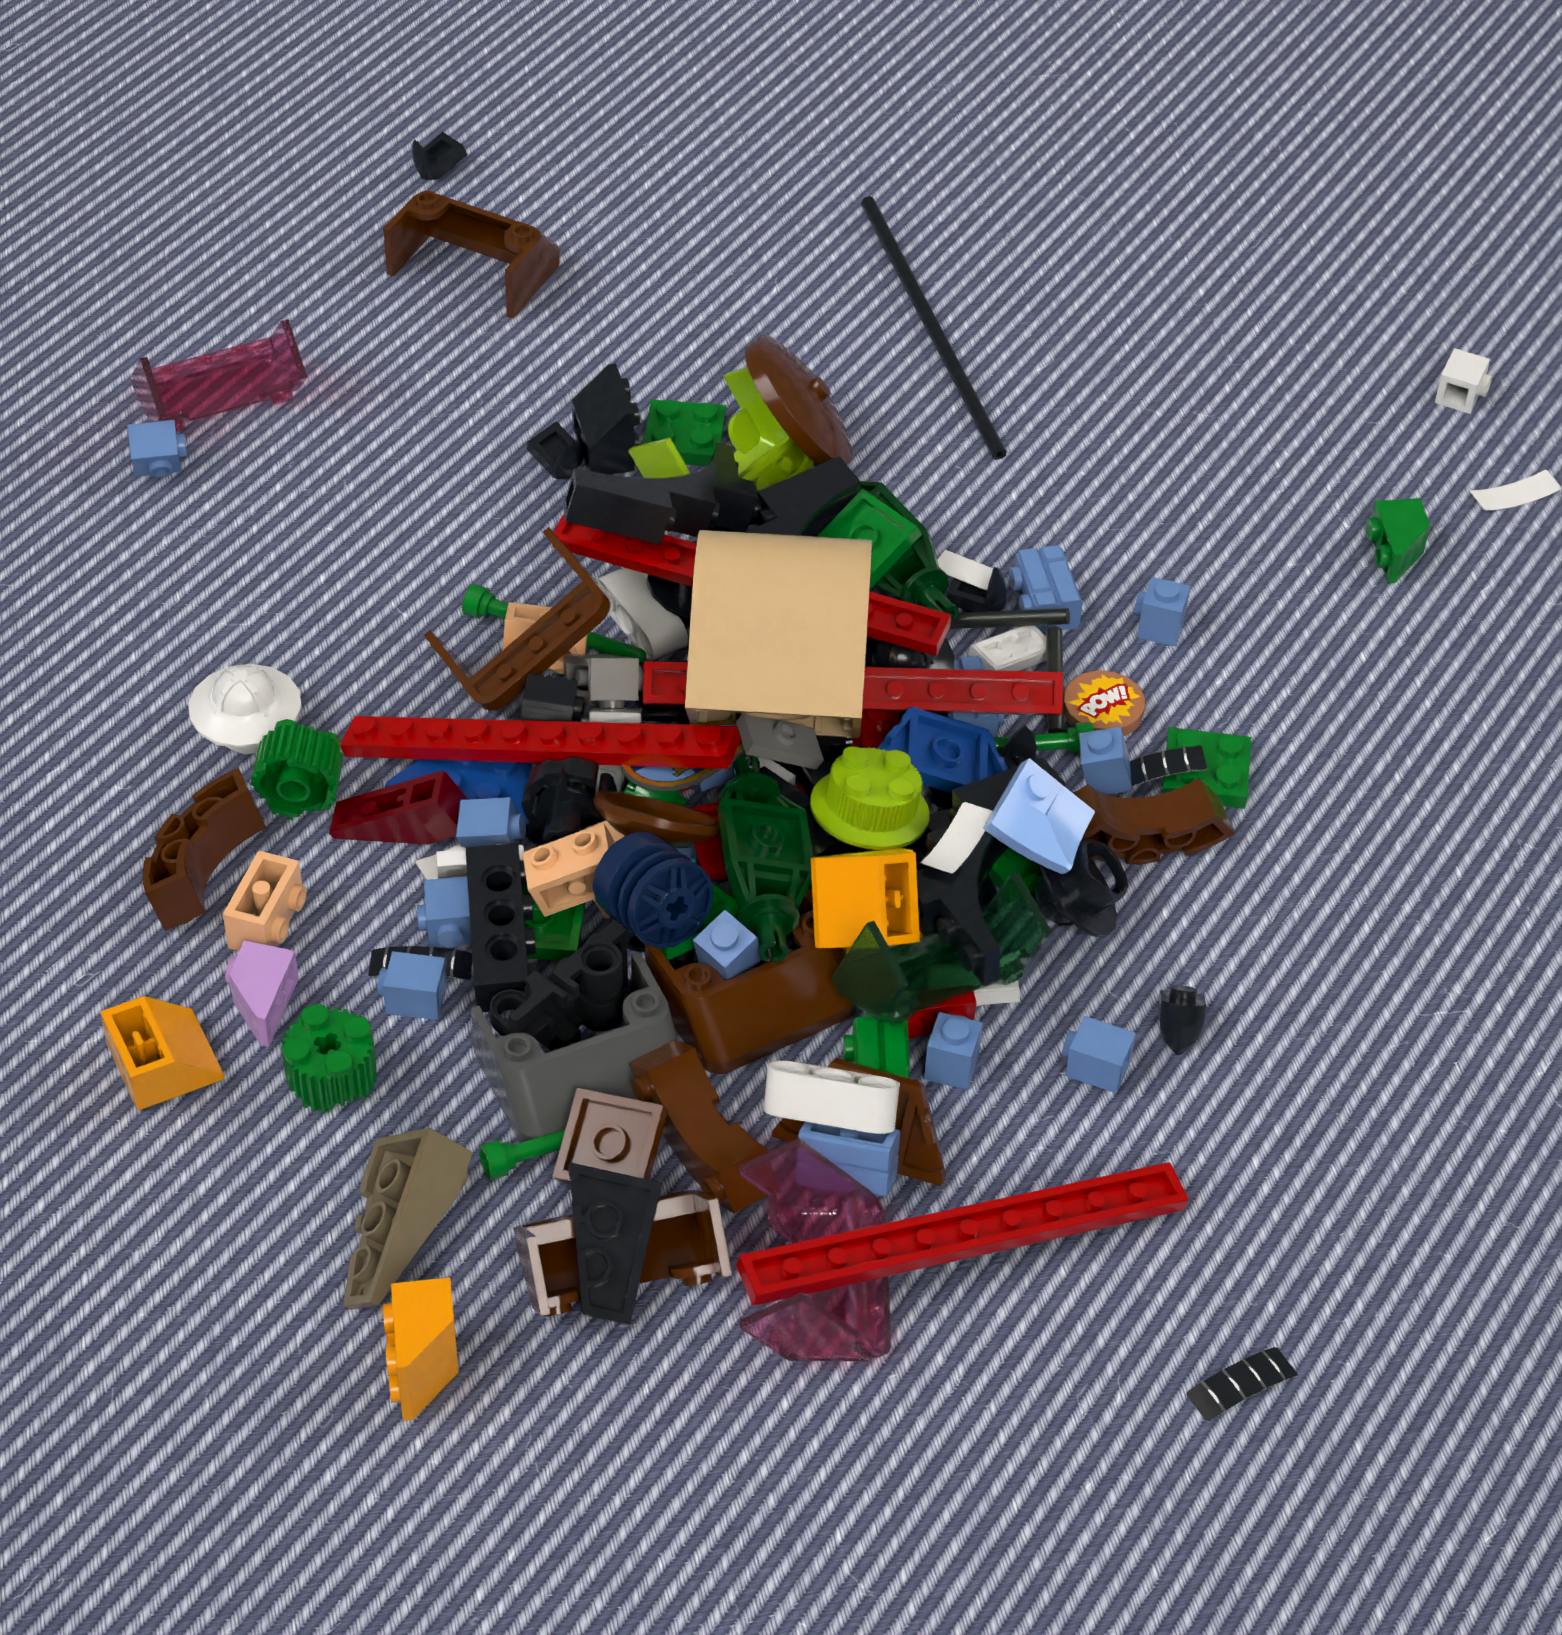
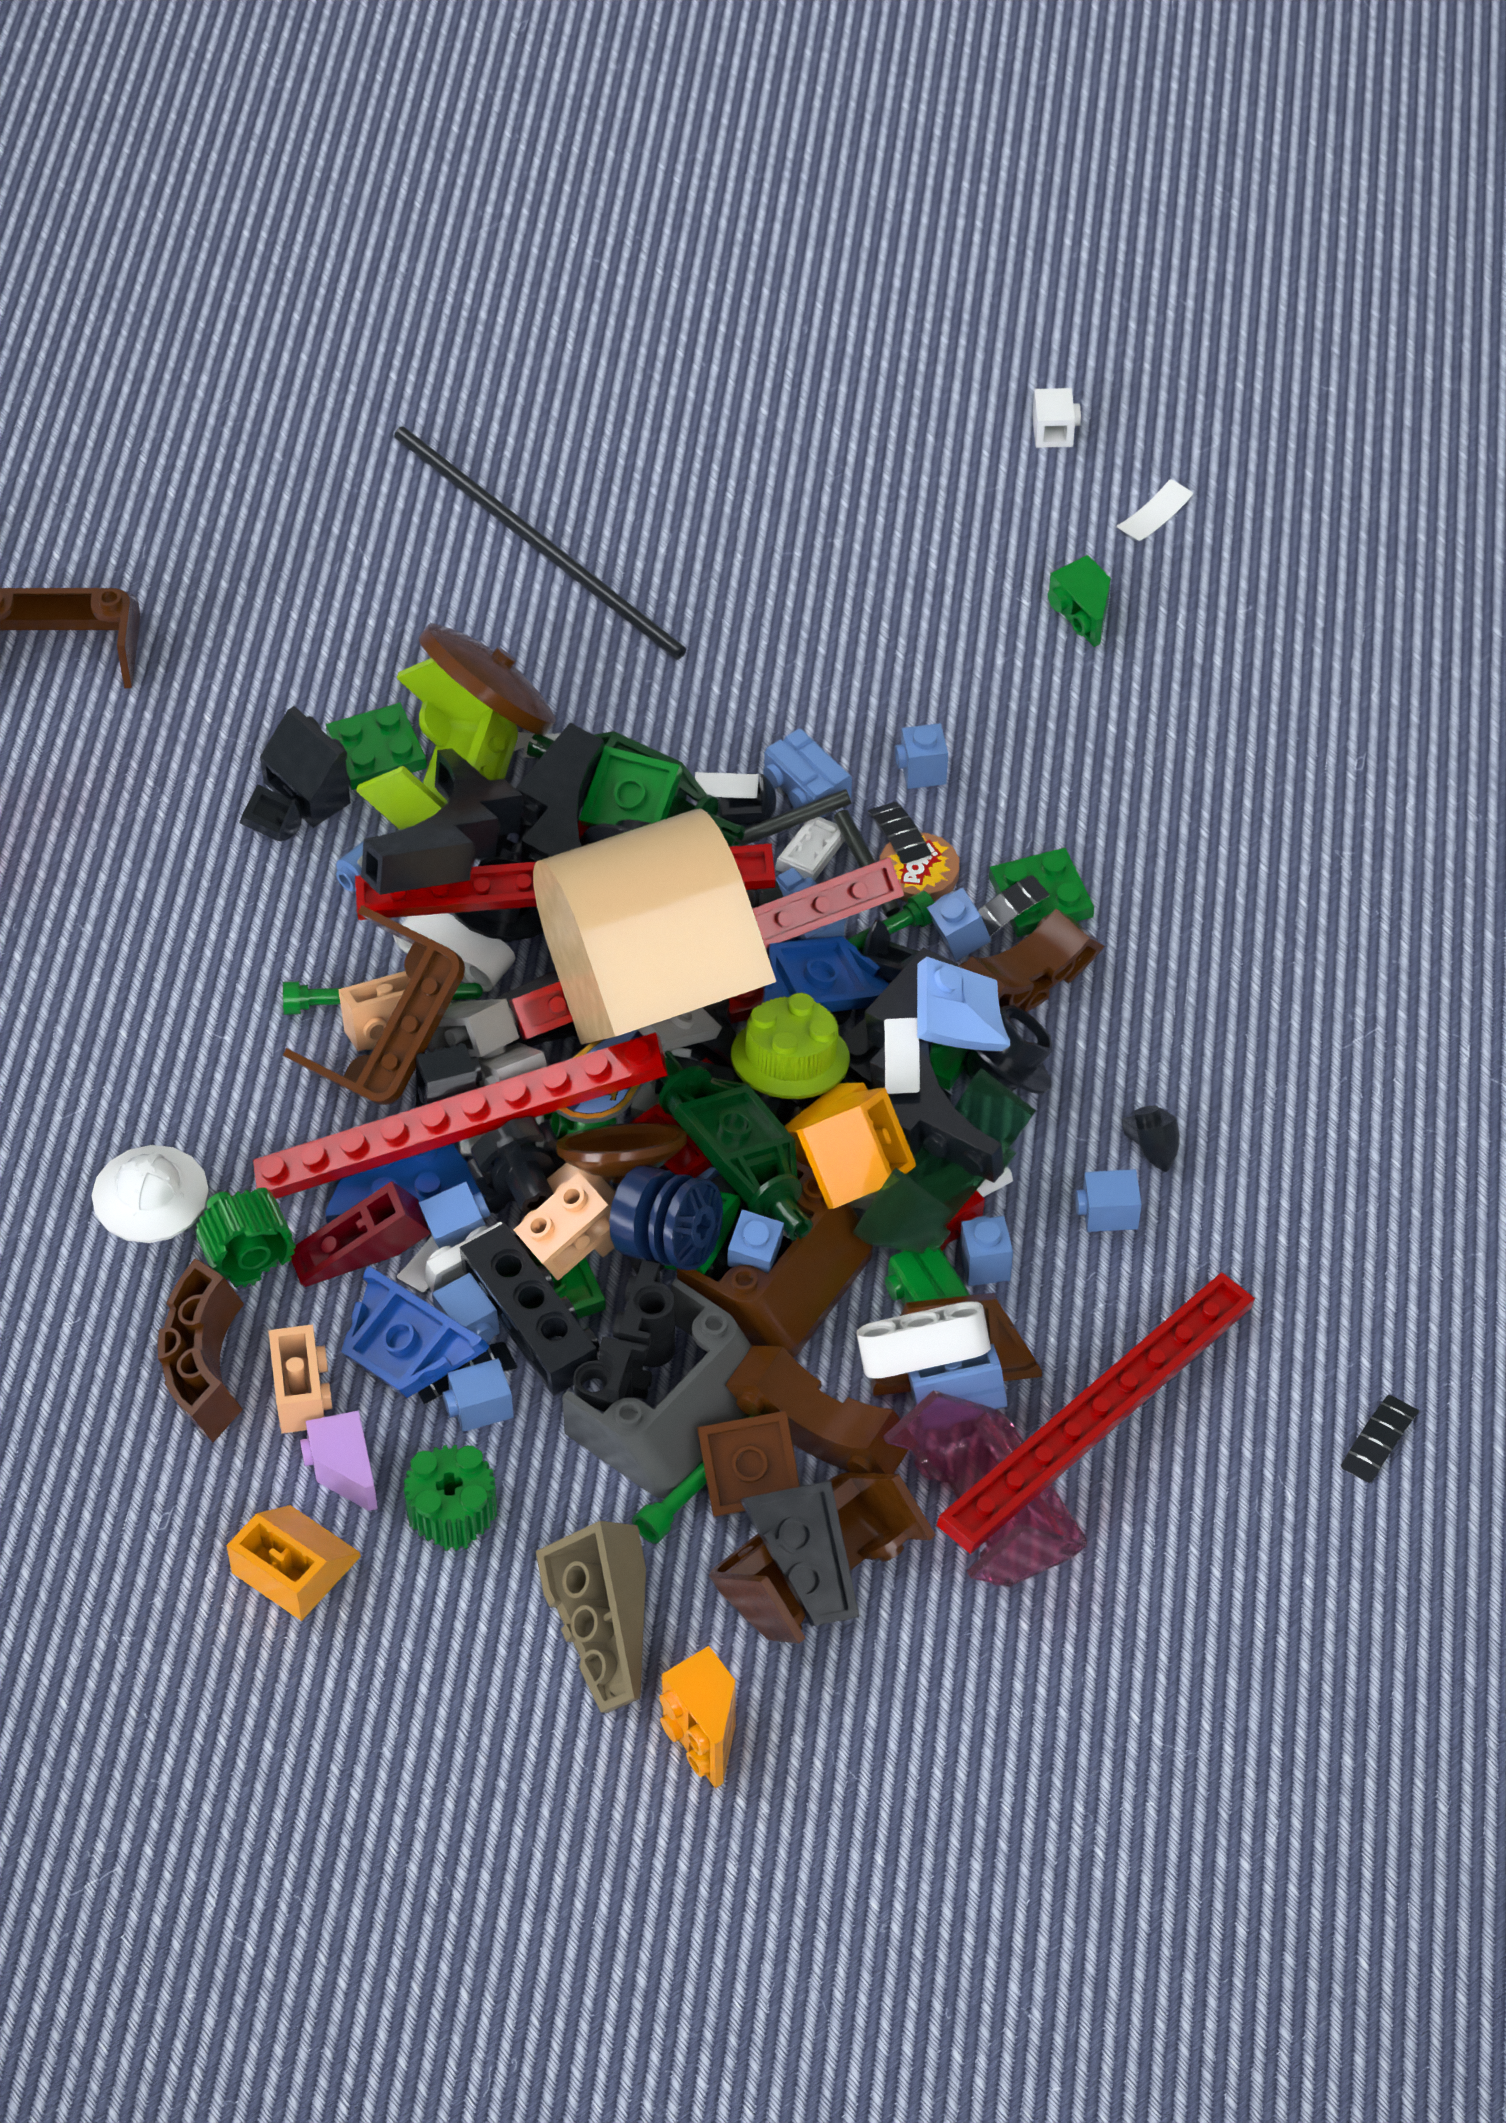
camera: 25 degrees left, 5 degrees up
(379, 909) = (405, 1337): none -> blue wing
(1104, 669) = (901, 832): none -> black sticker

